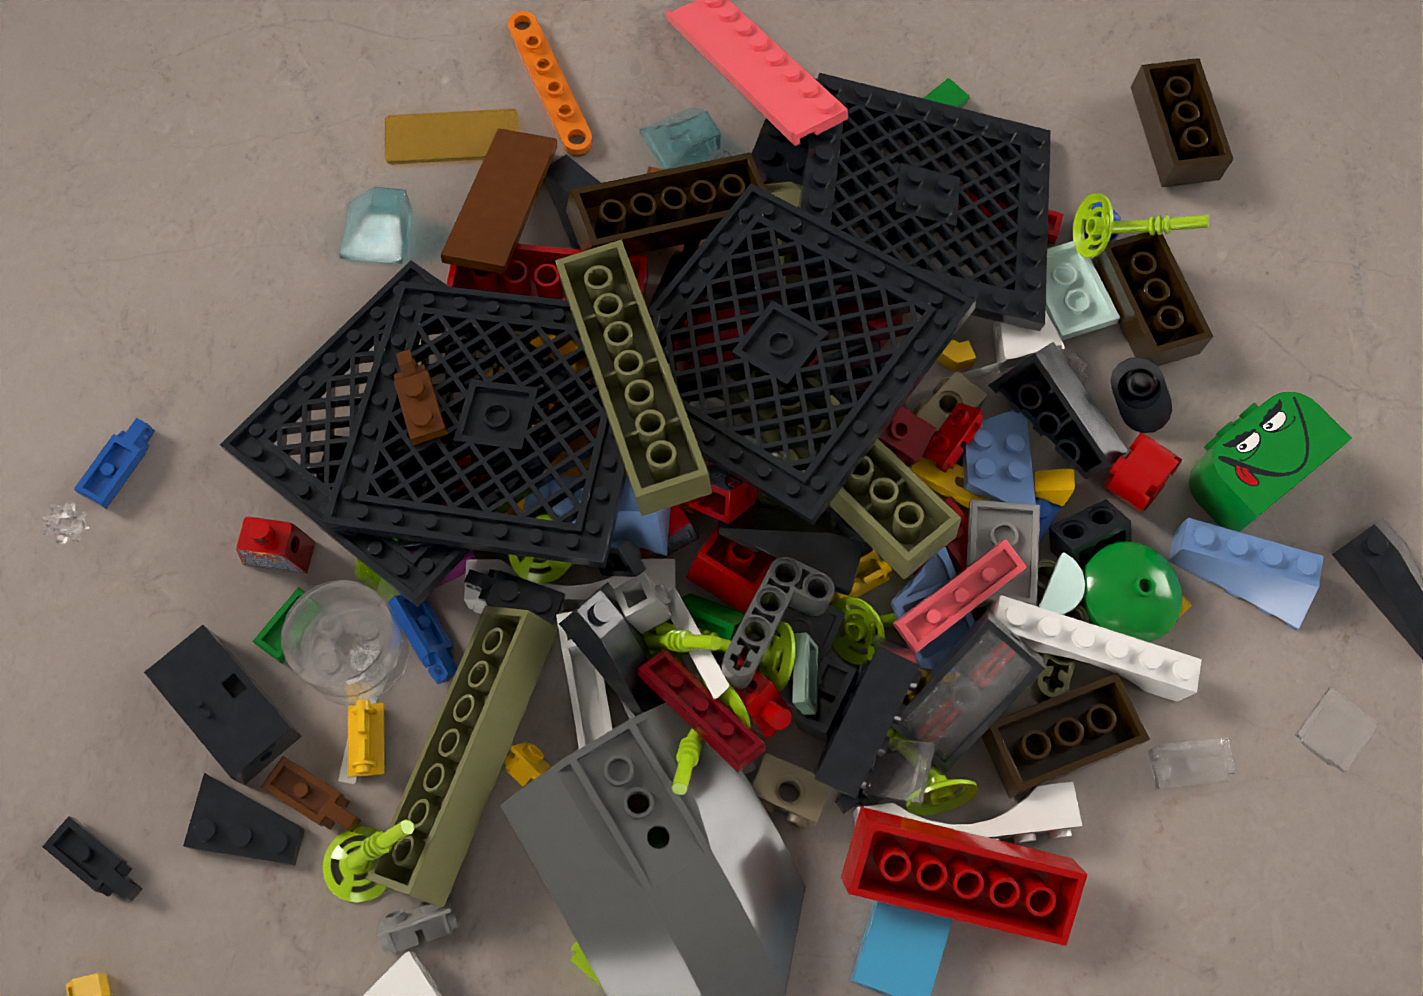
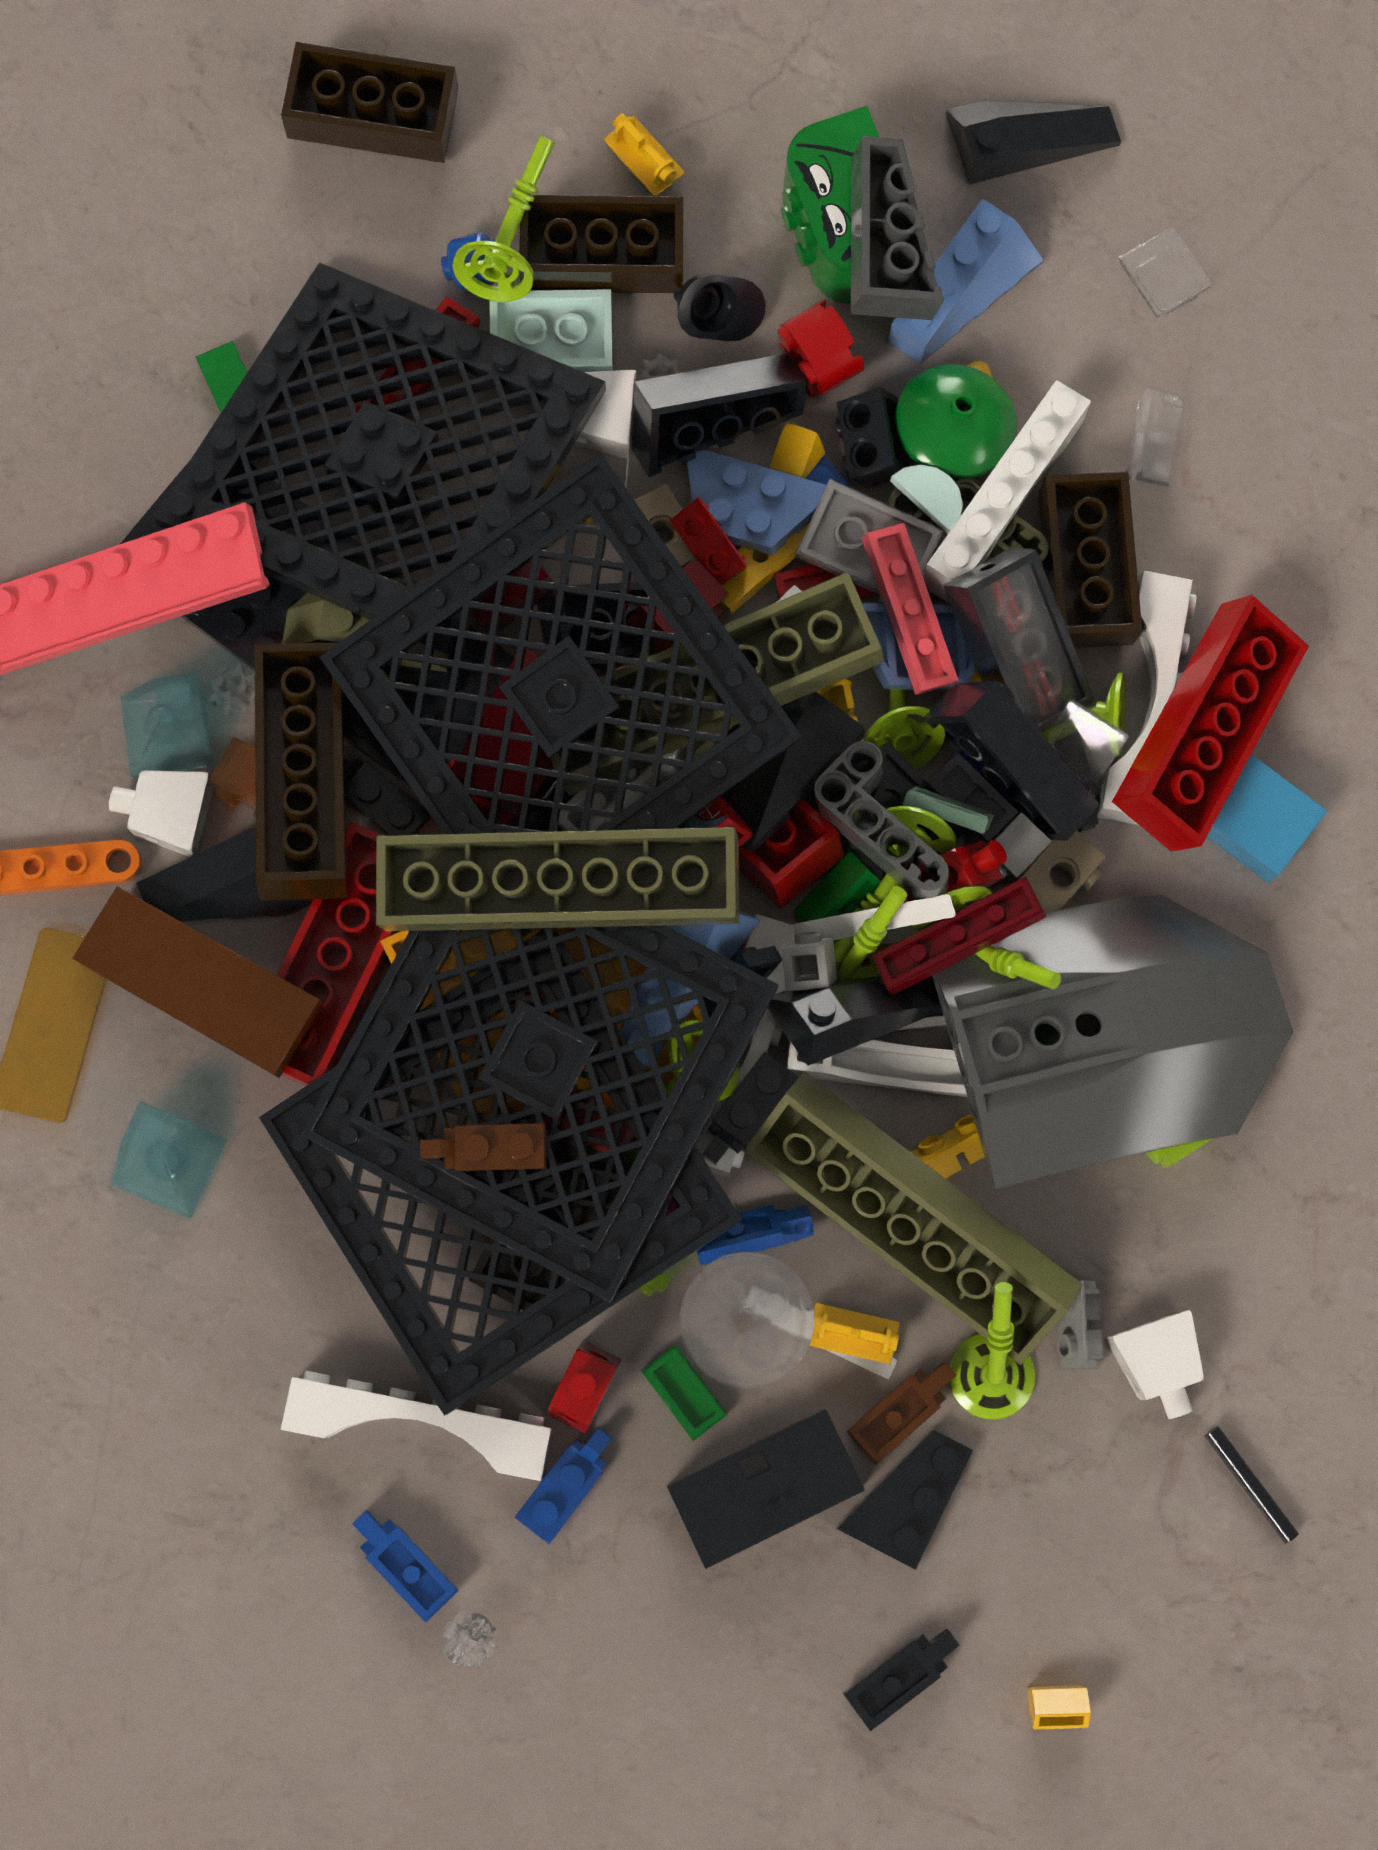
camera: 75 degrees left, 10 degrees up
(198, 559) = (564, 1487): none -> blue hinge
(218, 506) = (327, 1409): none -> white arch
(621, 150) = (167, 808): none -> white torso
(798, 746) = (1022, 845): none -> light grey brick
(1235, 311) = (643, 154): none -> yellow hinge
(1242, 479) = (888, 246): none -> dark grey wedge

